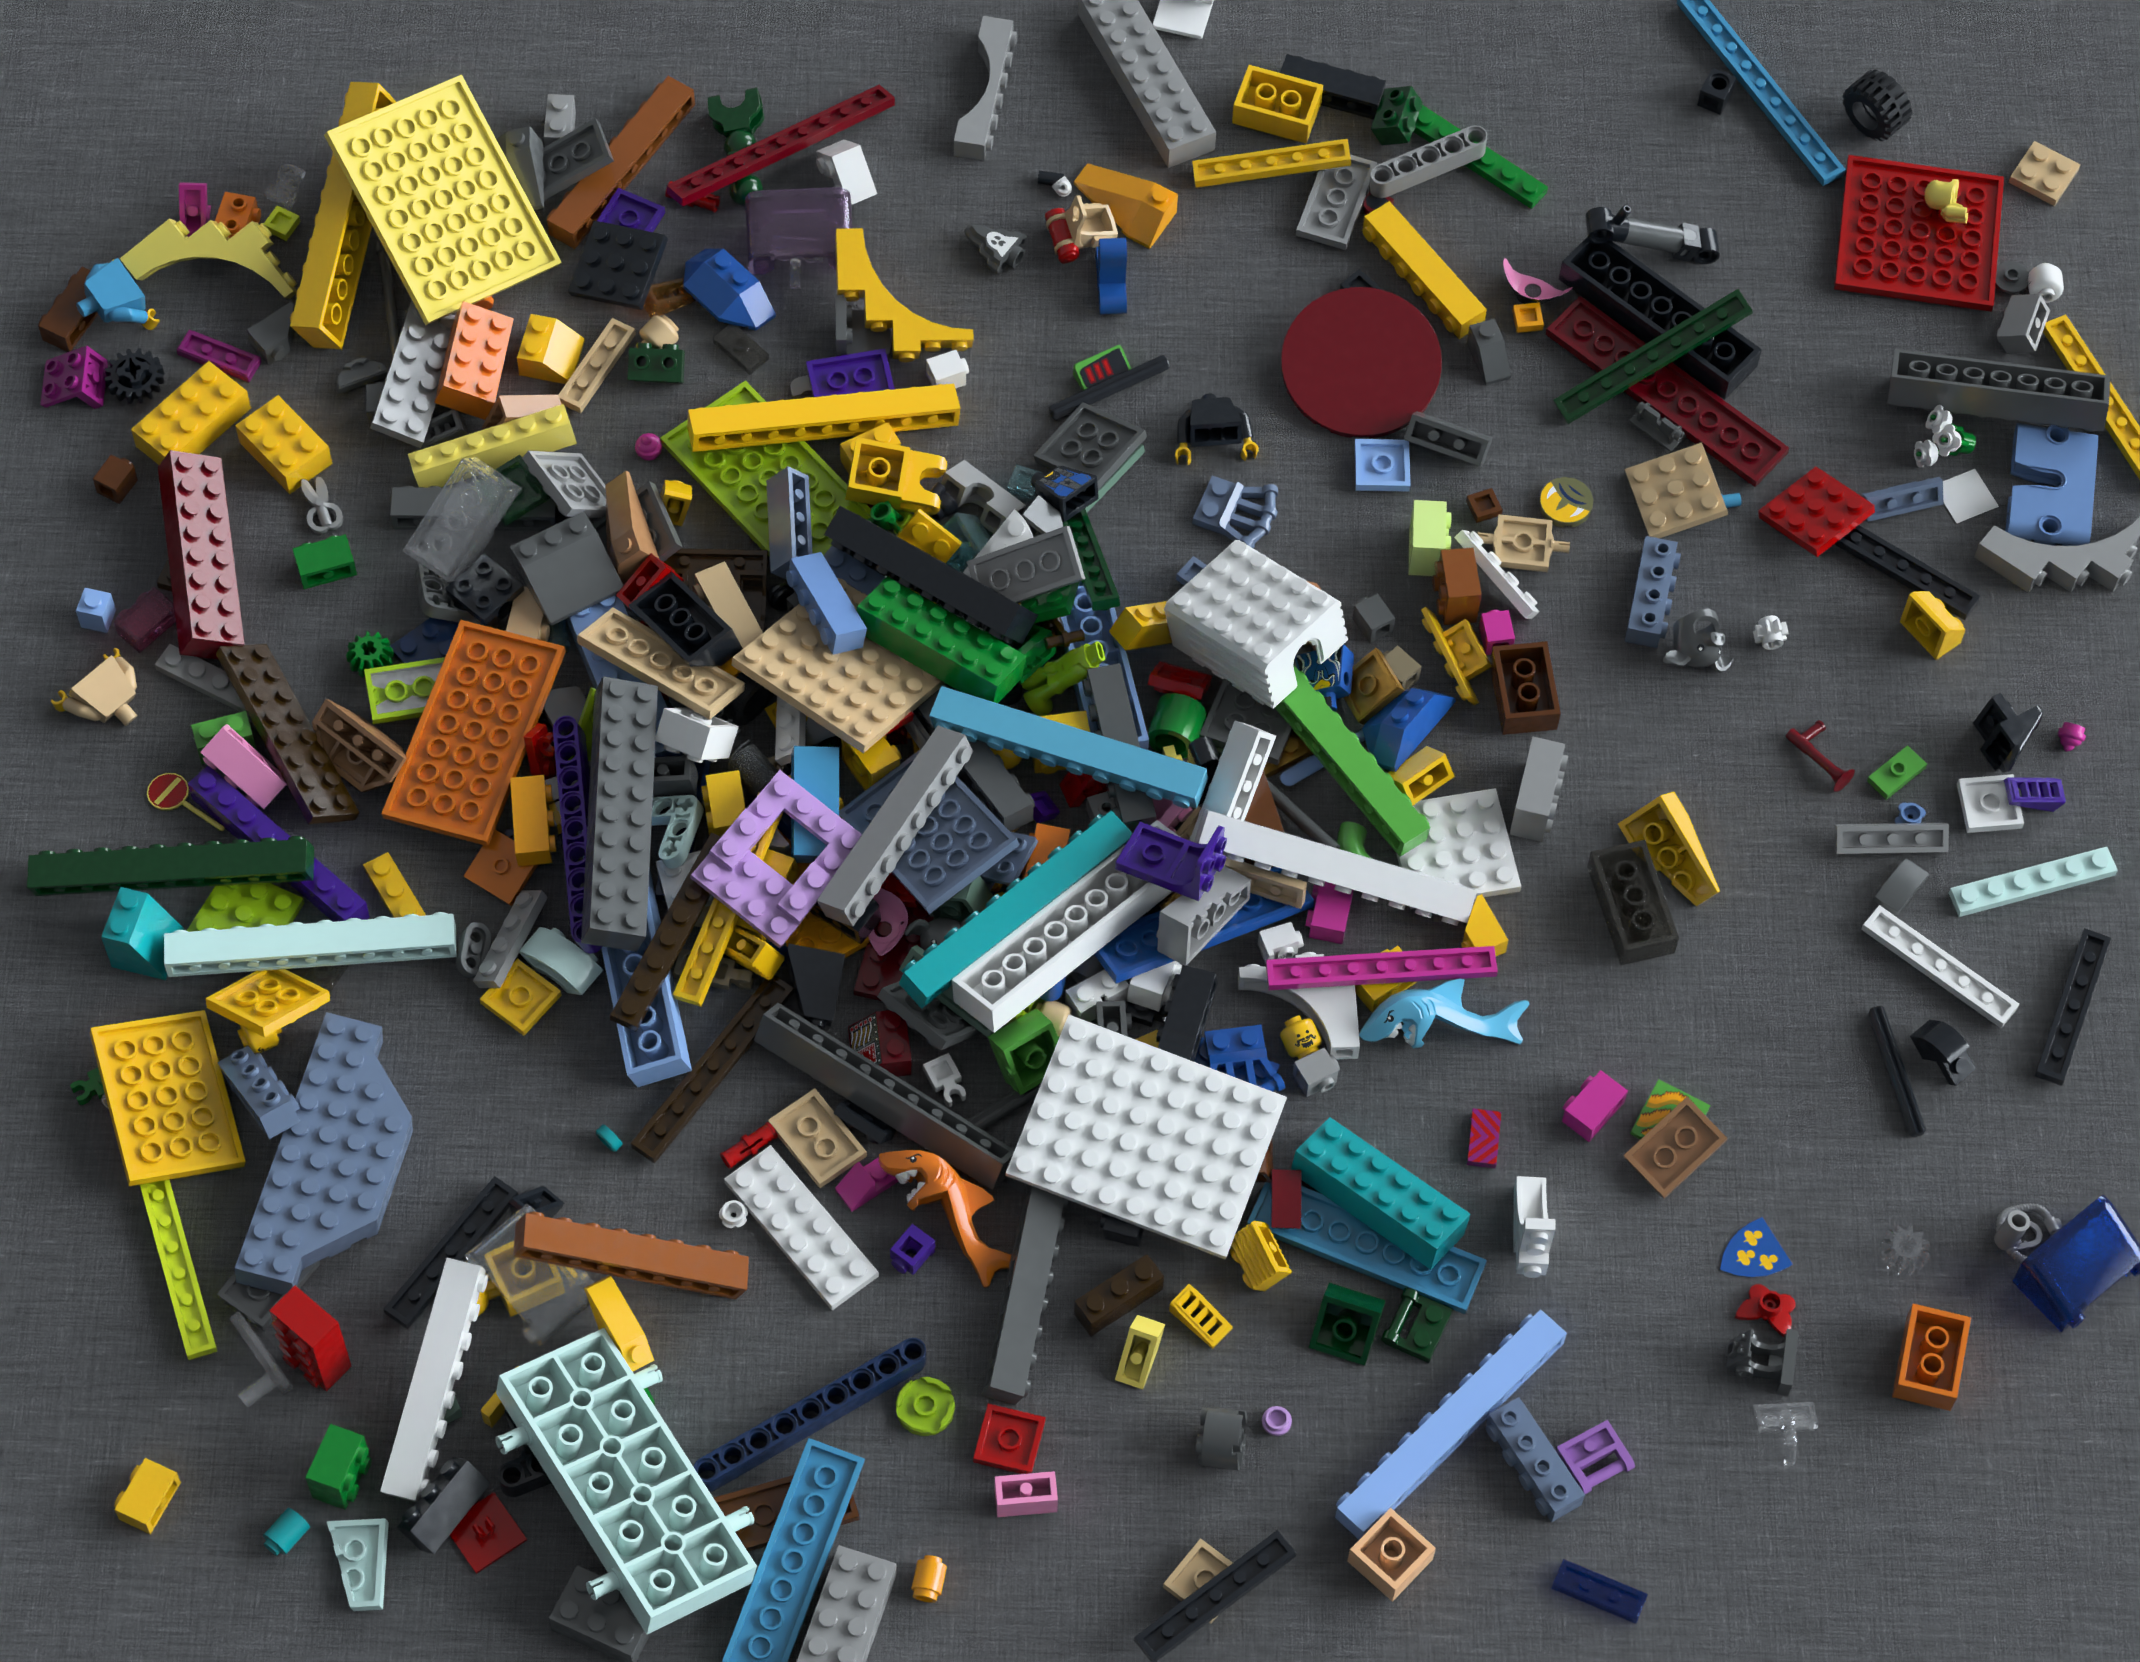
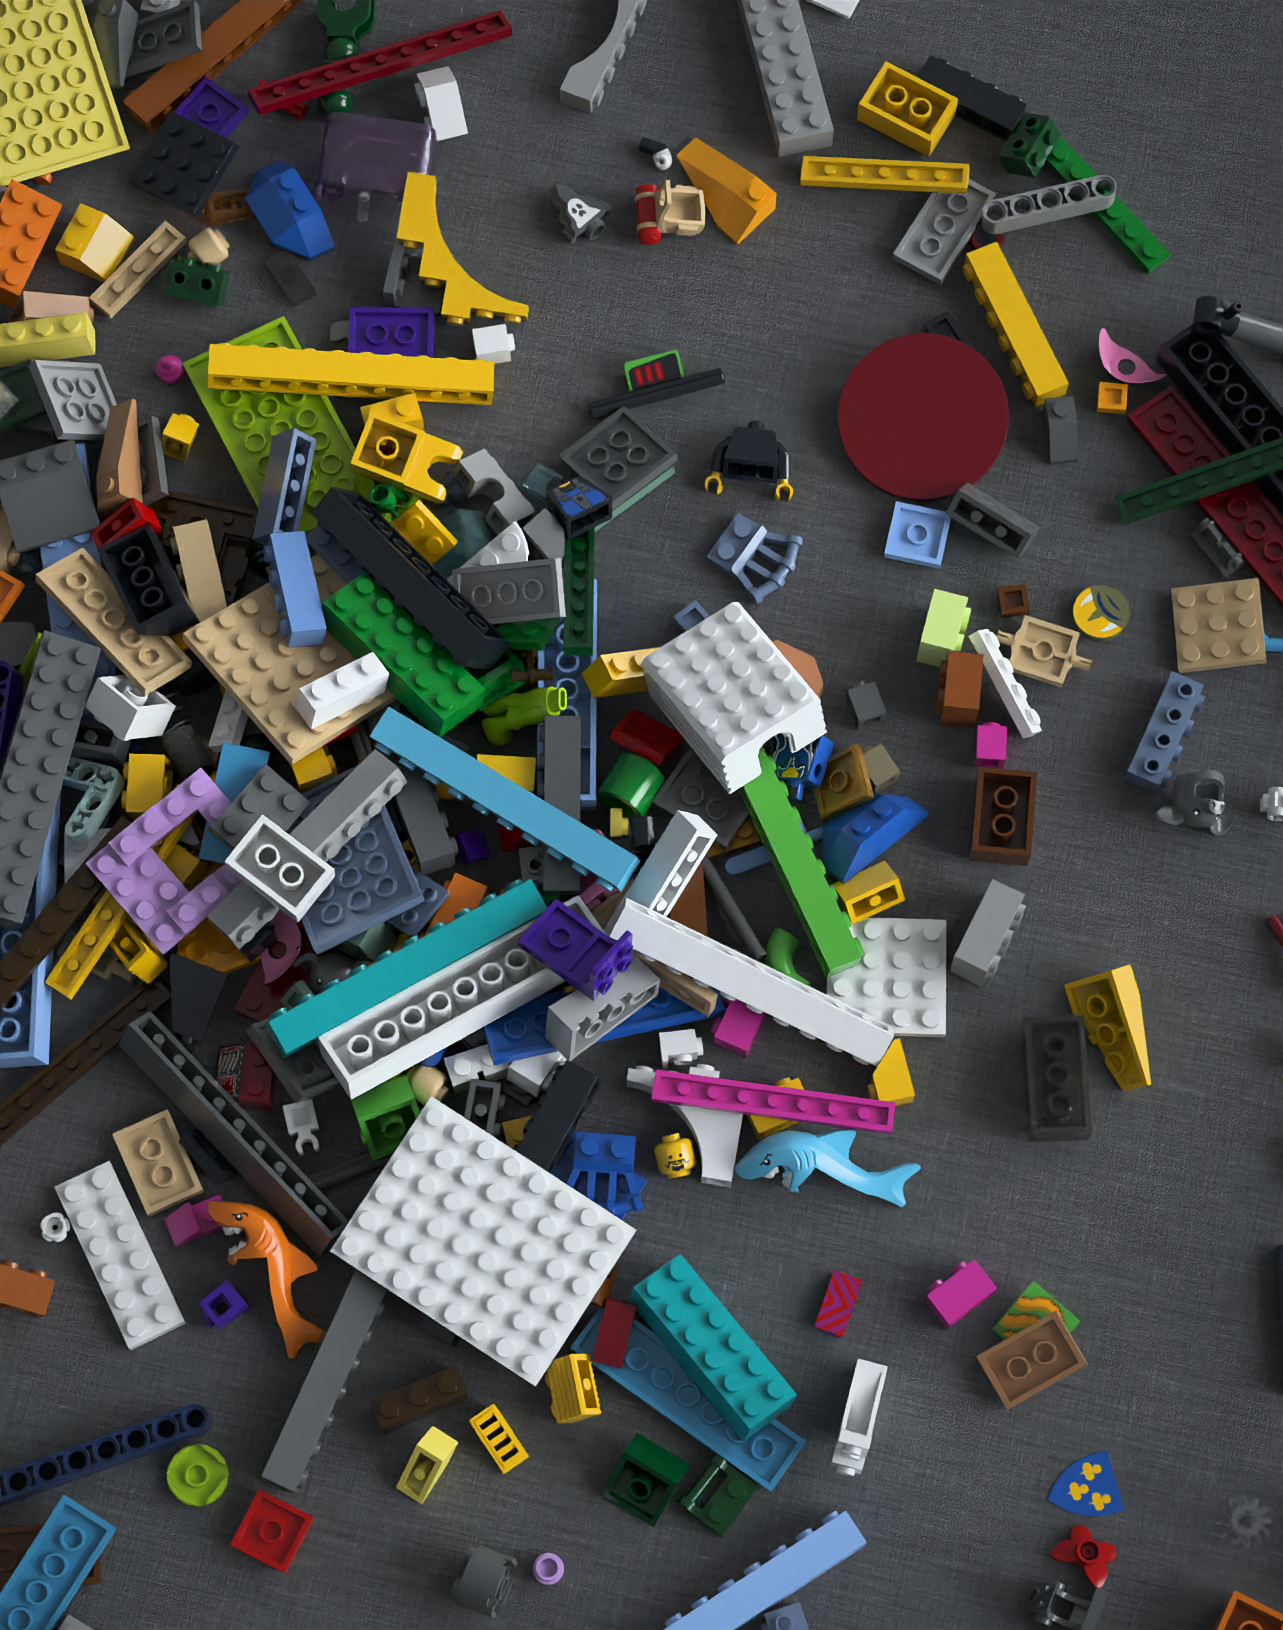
camera: 15 degrees right, 10 degrees up
(748, 1145) = (87, 1155): red pin -> none
(844, 803) = (263, 795): none -> dark grey plate
(880, 837) = (279, 868): none -> white brick
(895, 678) = (341, 690): none -> white brick
(1026, 1494) = (271, 1597): bright pink brick -> none
(1111, 275) = (686, 273): blue beam -> none
(1316, 1072) = (682, 1197): light grey brick -> none
(1461, 650) = (946, 760): yellow bracket -> none

